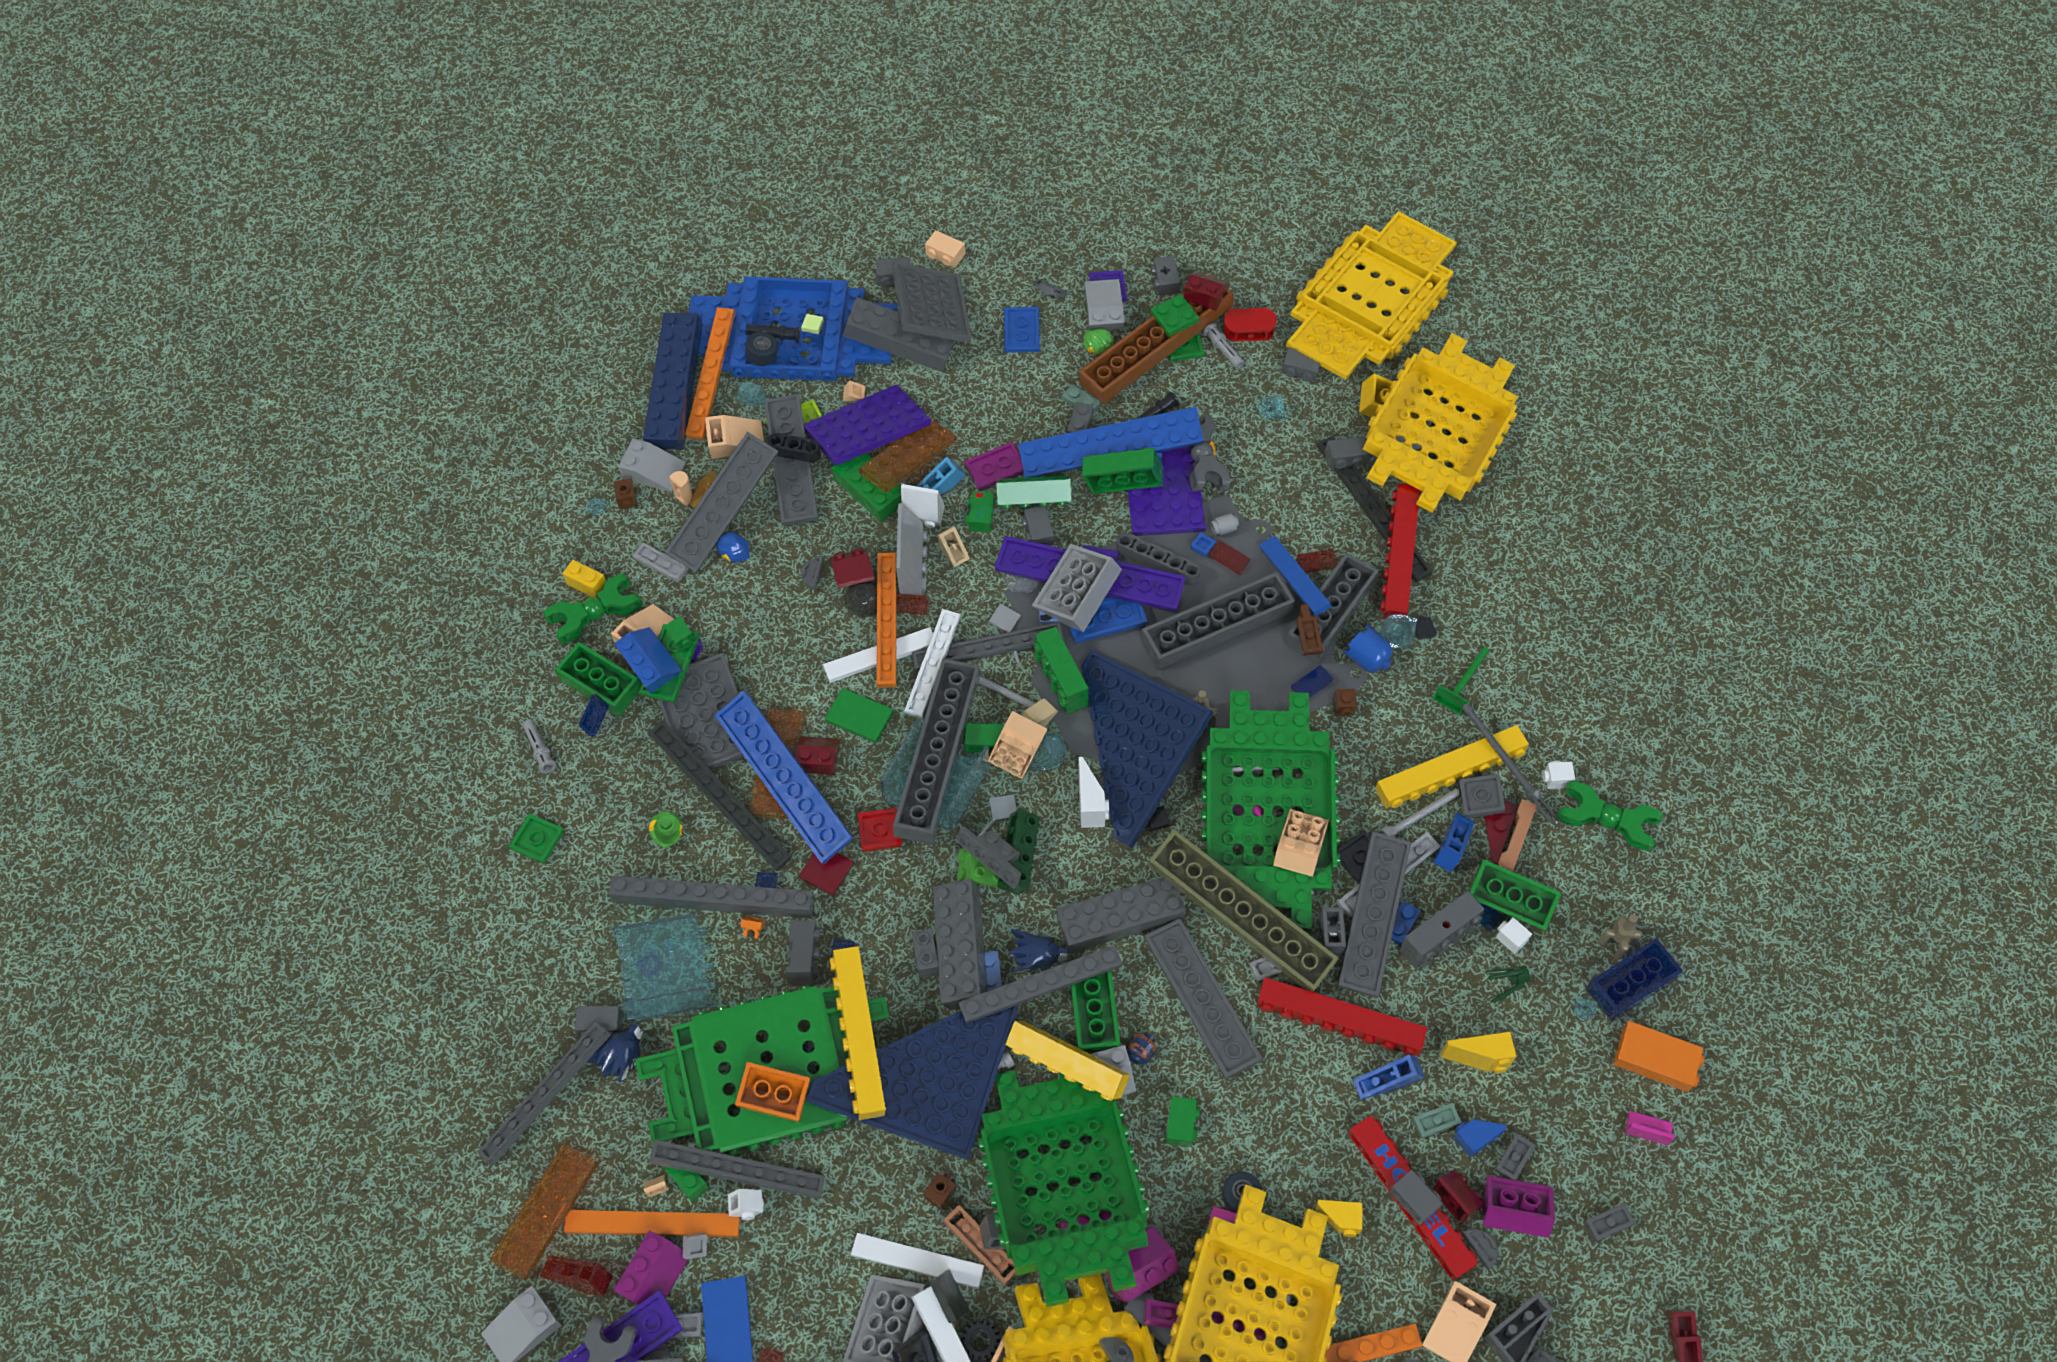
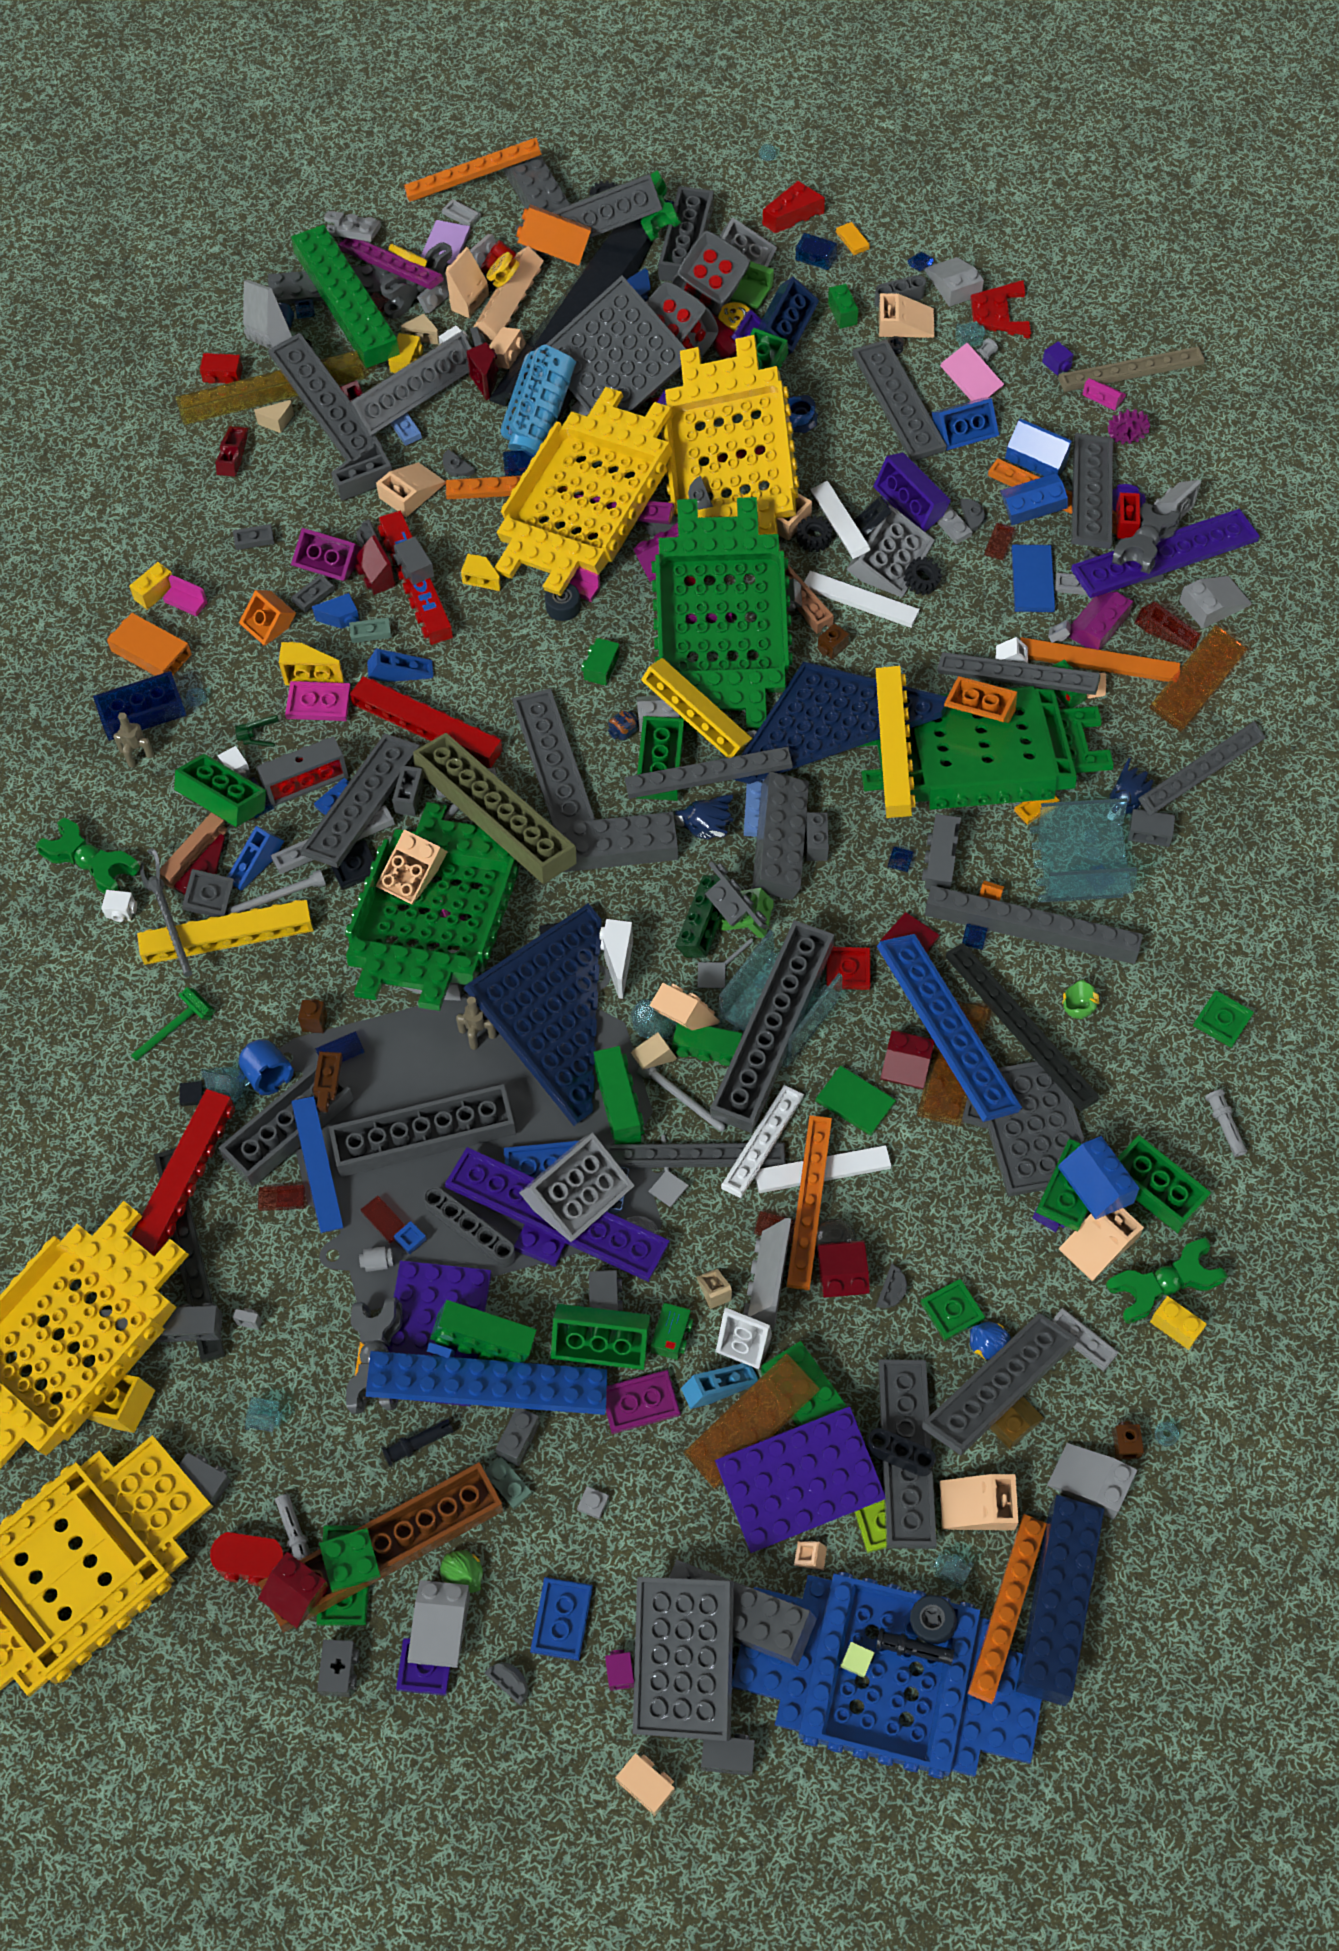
camera: 170 degrees left, 0 degrees up
(593, 715) = (1163, 1139): clear blue tile -> none
(680, 633) = (1059, 1200): green brick -> none
(681, 487) = (1052, 1425): light nougat brick -> none
(763, 563) = (952, 1310): none -> green plate
(840, 1291) = (926, 567): none -> black tyre
(949, 1296) = (836, 555): pearl dark grey tile -> none
(975, 303) = (619, 1670): none -> magenta brick
(1016, 398) = (593, 1502): none -> light grey plate
(1309, 468) = (247, 1318): none -> light grey plate
(1457, 1022) = (318, 701): none -> dark pink plate
(1551, 1117) = (266, 616): none -> orange slope
(1689, 1132) = (151, 585): none -> yellow brick

